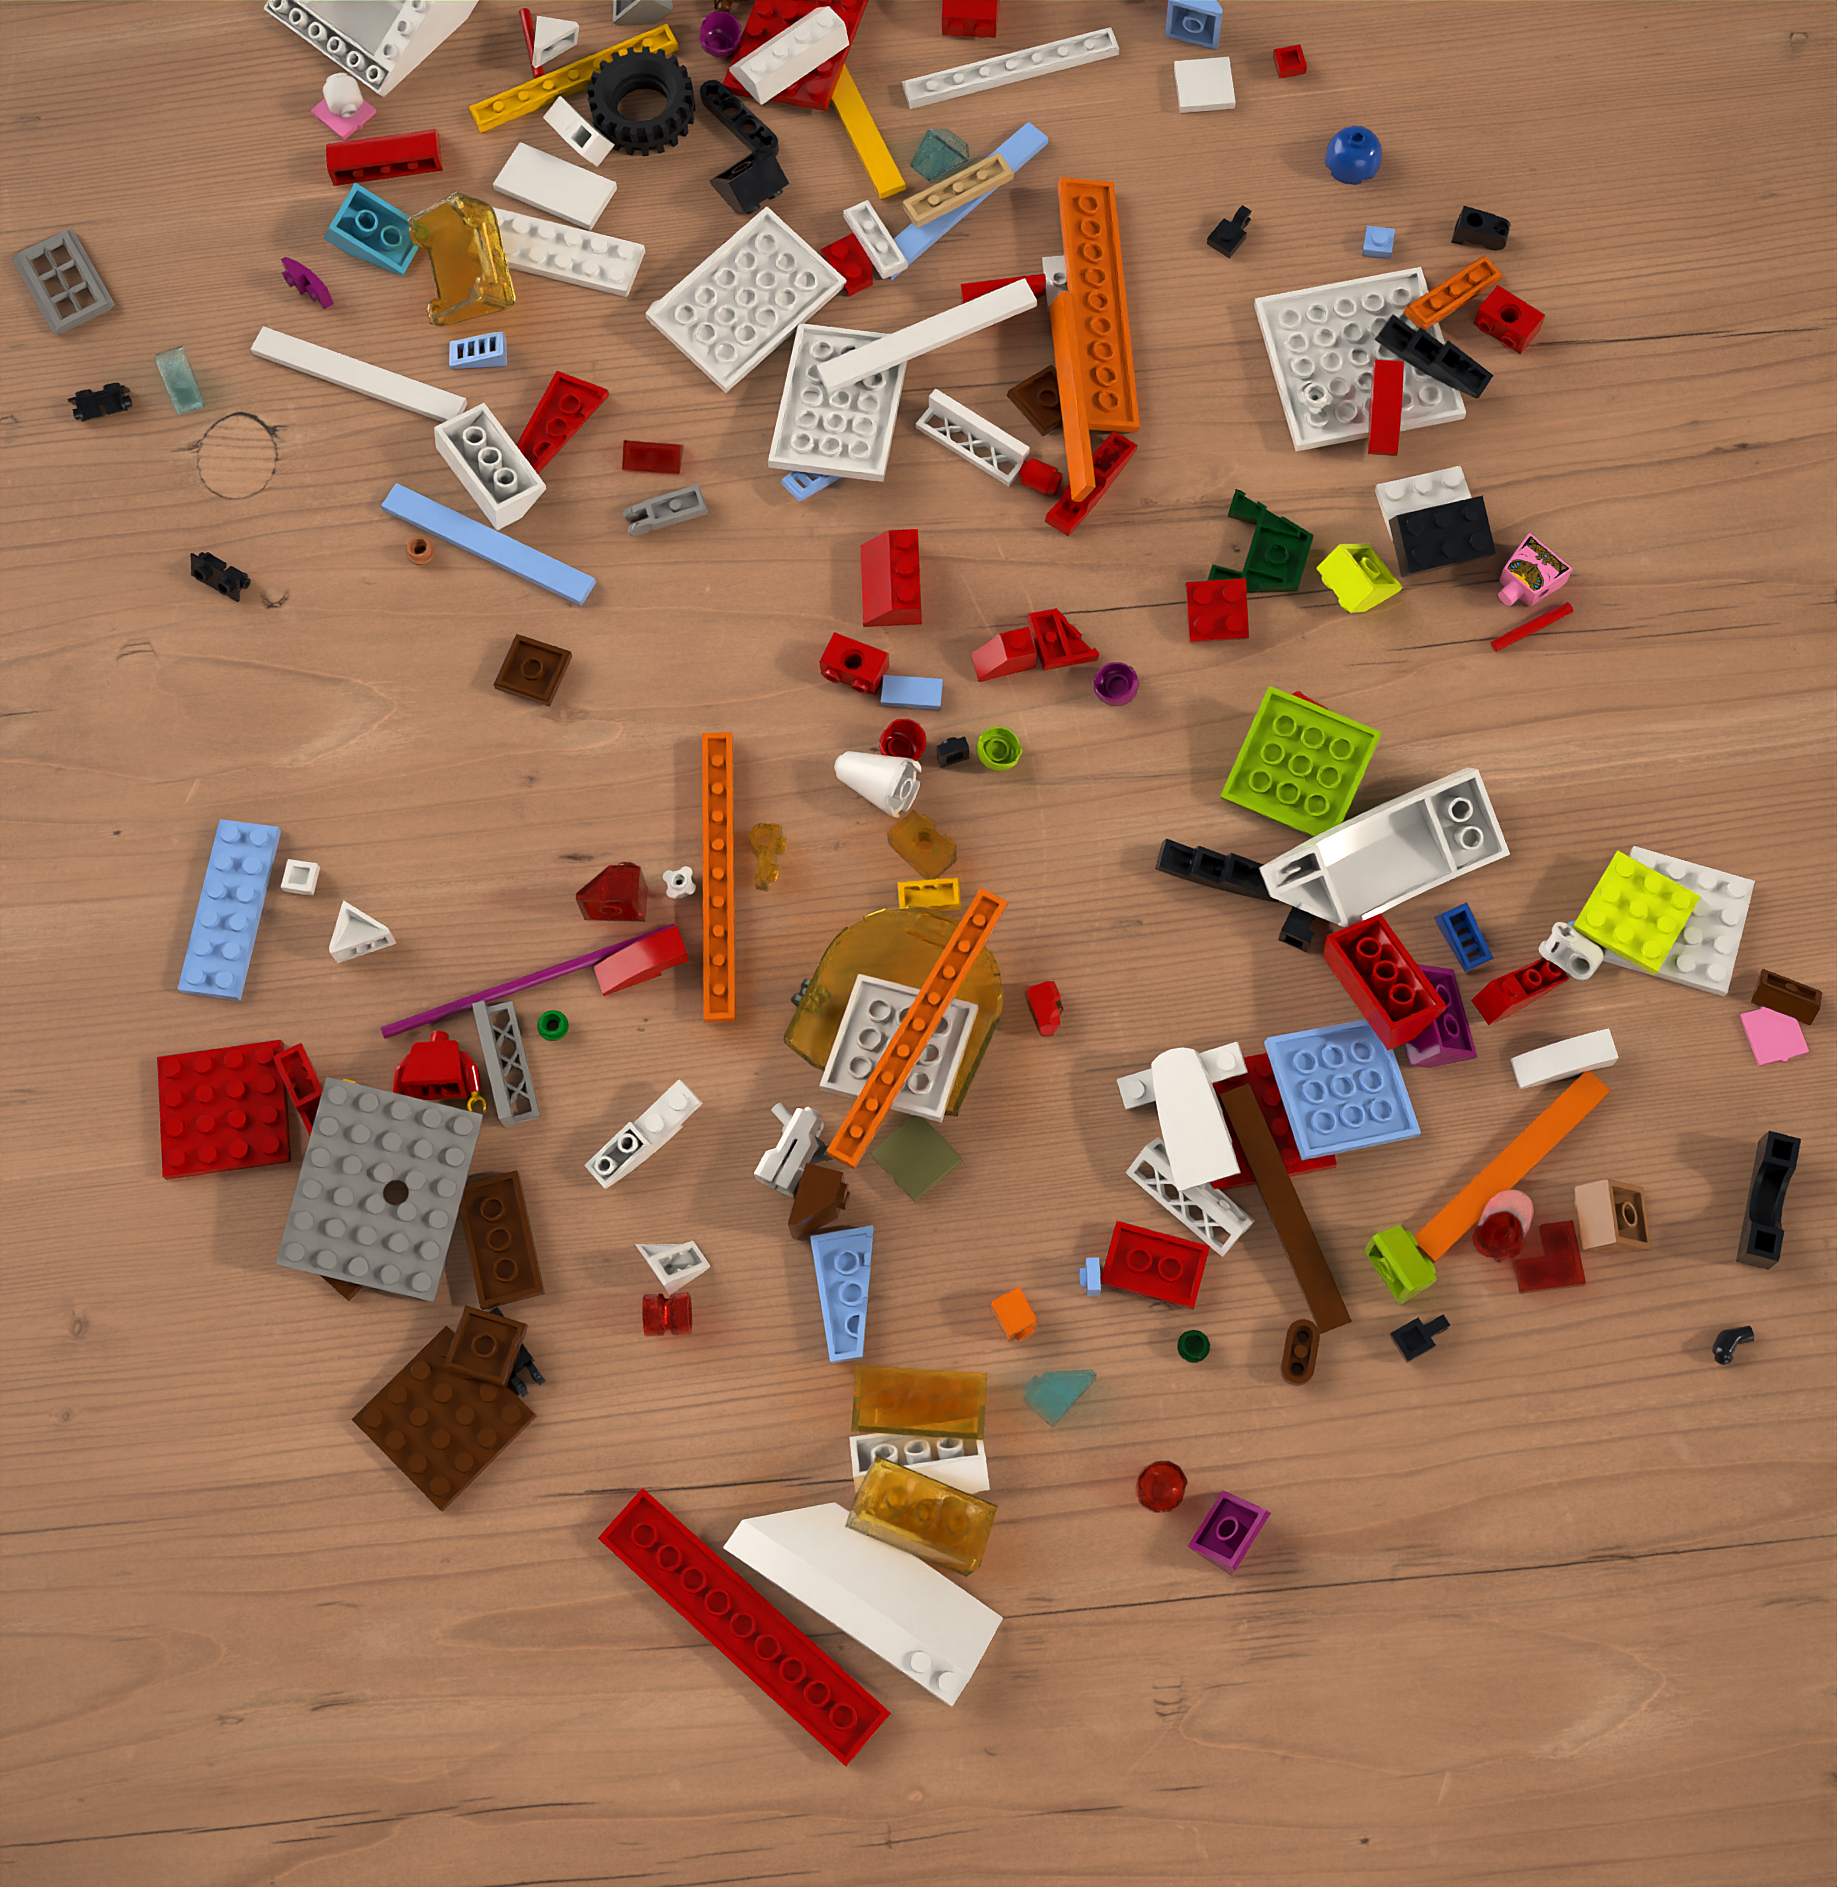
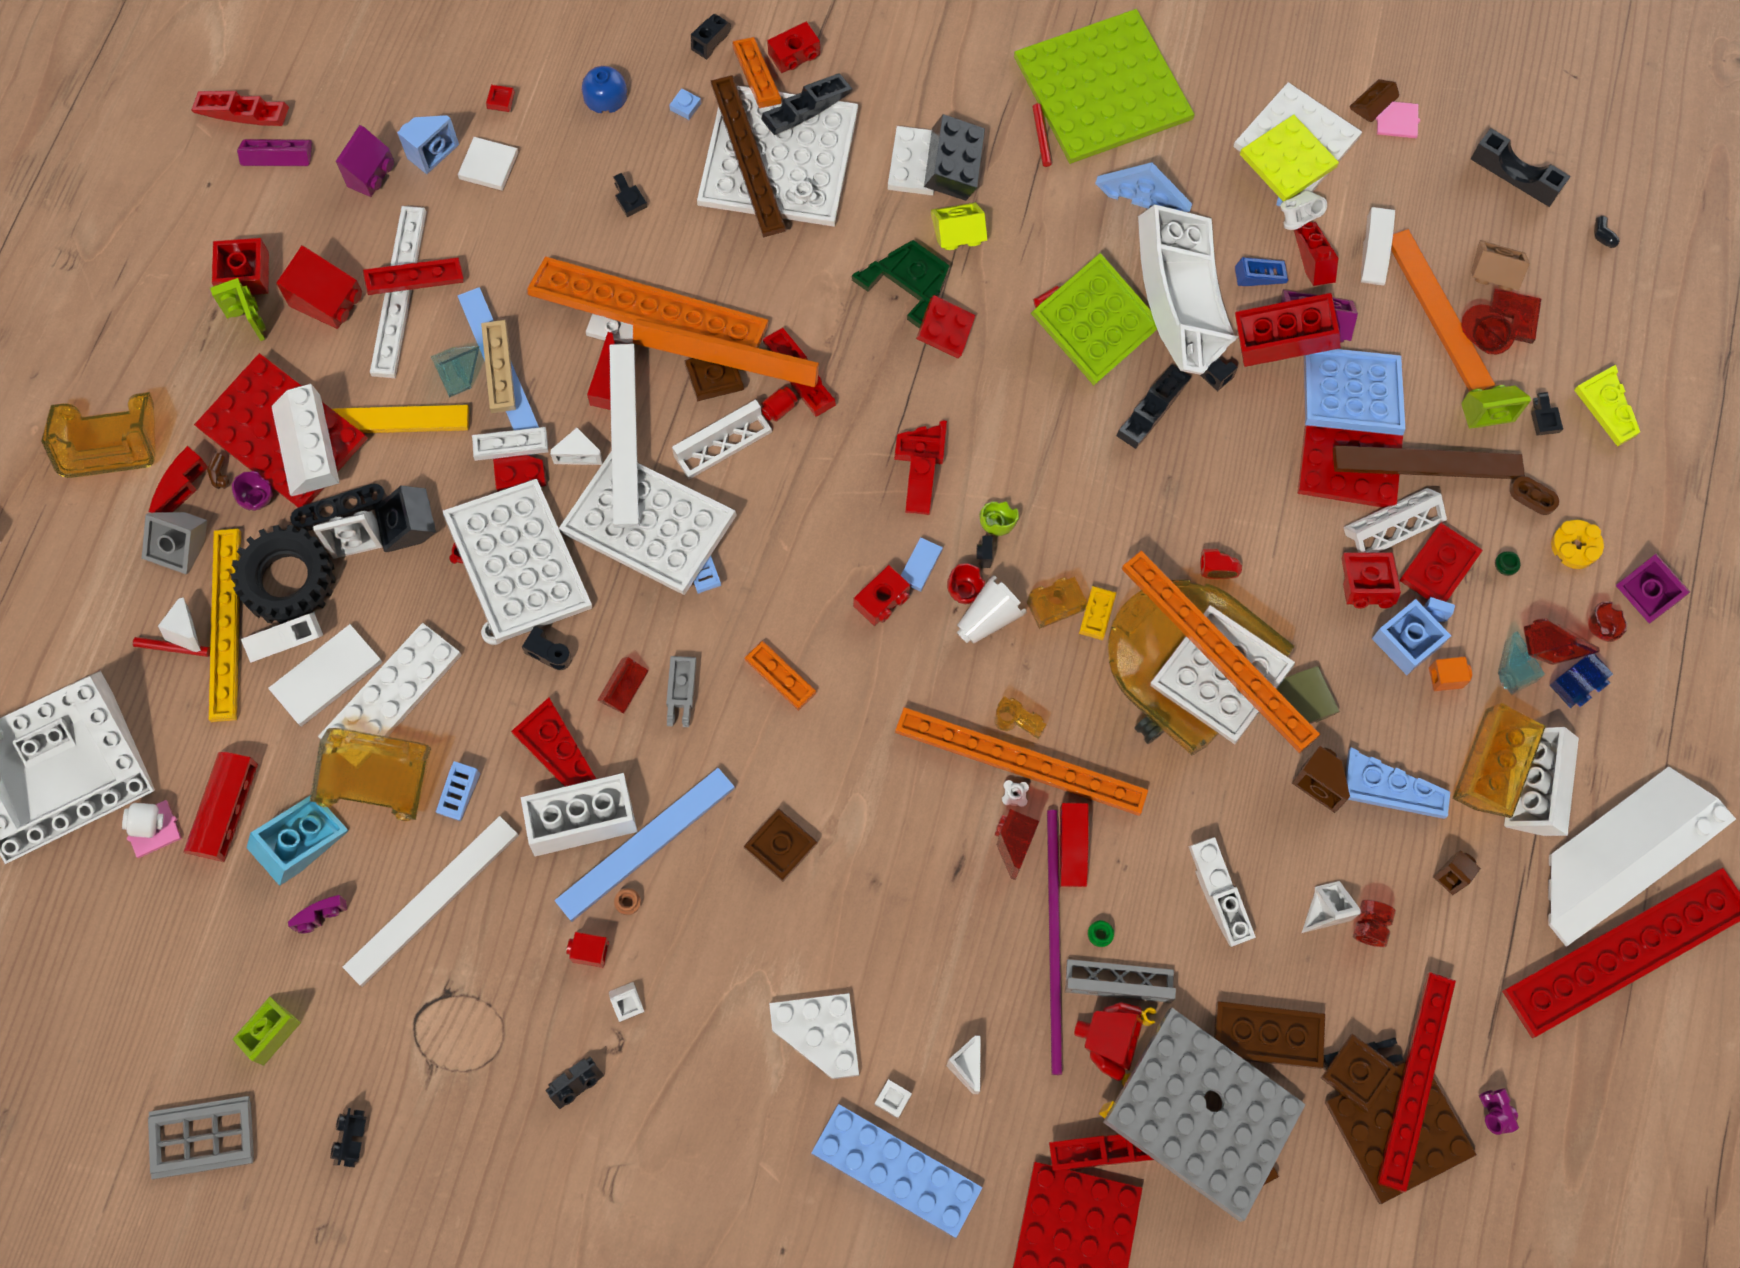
camera: 75 degrees left, 0 degrees up
(177, 291) = (266, 1031): none -> lime slope
(179, 379) = (361, 1057): clear light blue slope -> none
(317, 590) = (626, 1001): none -> white slope
(347, 784) = (820, 1032): none -> white plate
(355, 533) = (588, 949): none -> red brick
(492, 1526) = (1501, 1116): none -> magenta plate
(498, 1413) = (1416, 1082): none -> red tile
(657, 367) = (554, 655): none -> black leg
(707, 134) = (349, 534): none -> white slope
(723, 601) = (780, 675): none -> orange tile
(764, 1391) = (1457, 872): none -> reddish brown slope
(797, 1146) = (1272, 782): white piece -> none
(891, 579) = (820, 541): red slope -> none
(897, 301) = (576, 450): none -> white slope
(922, 1516) = (1592, 789): clear yellow slope -> none
(1027, 69) = (413, 276): none -> red plate
(1039, 1251) = (1411, 637): none -> light blue brick
(1070, 1476) = (1581, 680): none -> clear blue brick
(1097, 1184) = (1370, 579): none -> red plate
(1100, 1421) = (1555, 643): none -> clear red slope
(1116, 684) = (978, 416): magenta hair -> none
(1189, 1110) = (1341, 493): white slope -> none
(1248, 1442) = (1587, 534): none -> yellow plate
(1336, 325) = (748, 156): none -> reddish brown tile
(1385, 407) = (835, 149): red slope -> none
(1473, 1412) = (1607, 403): none -> neon yellow wing
(1505, 771) = (1144, 186): none -> light blue plate
(1532, 573) = (1002, 116): bright pink torso -> none
(1639, 672) = (1103, 86): none -> lime plate

